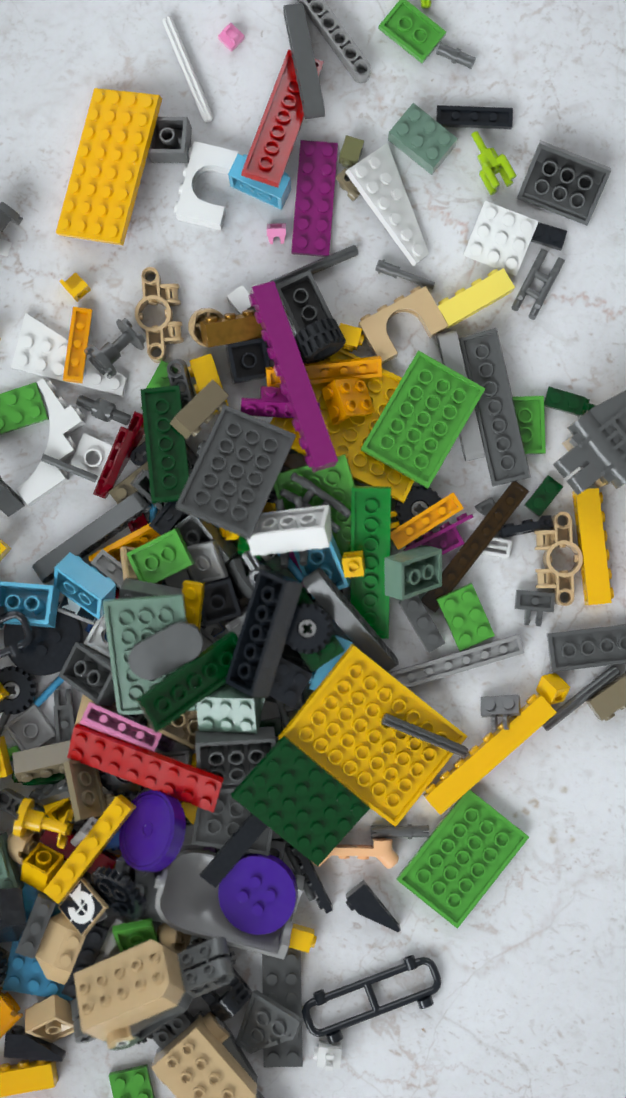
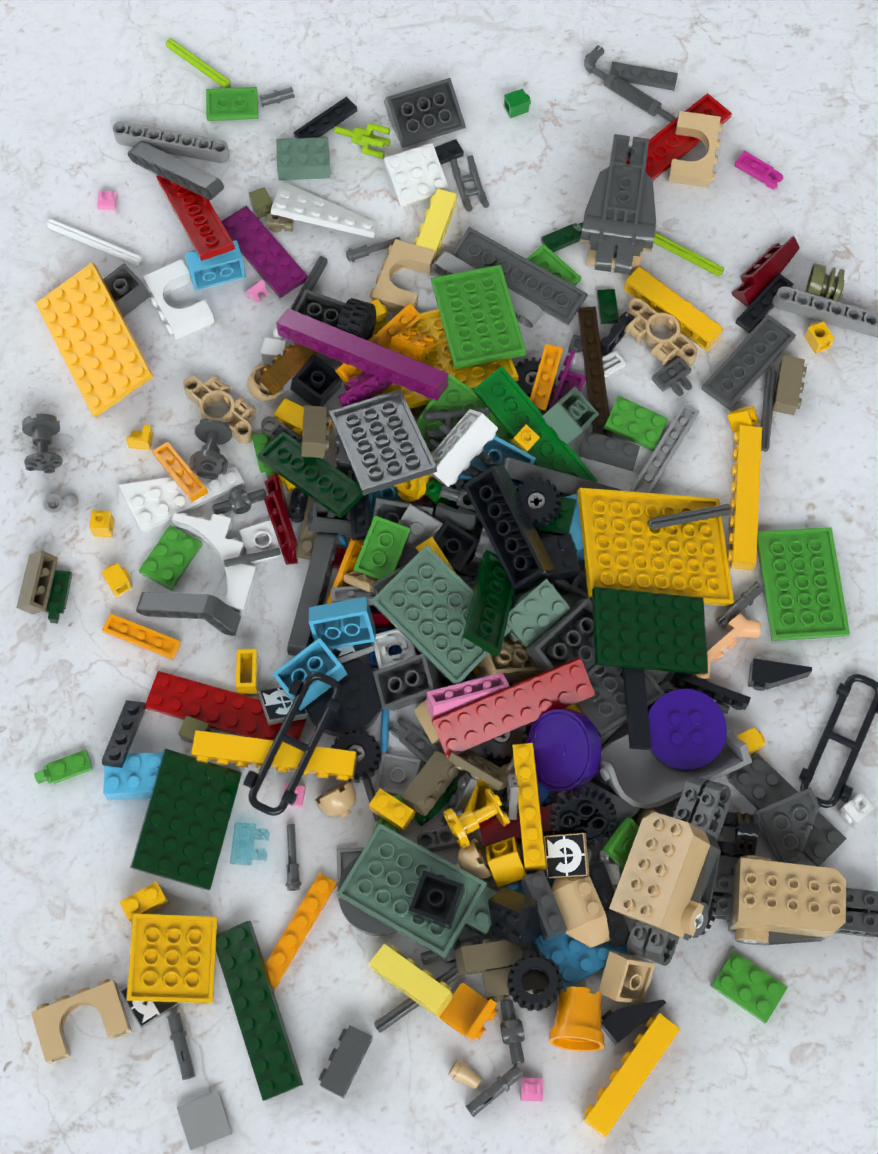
camera: 45 degrees left, 20 degrees down
(165, 650) = (450, 597): dark grey tile -> none
(500, 706) = (720, 459): dark grey hinge -> none

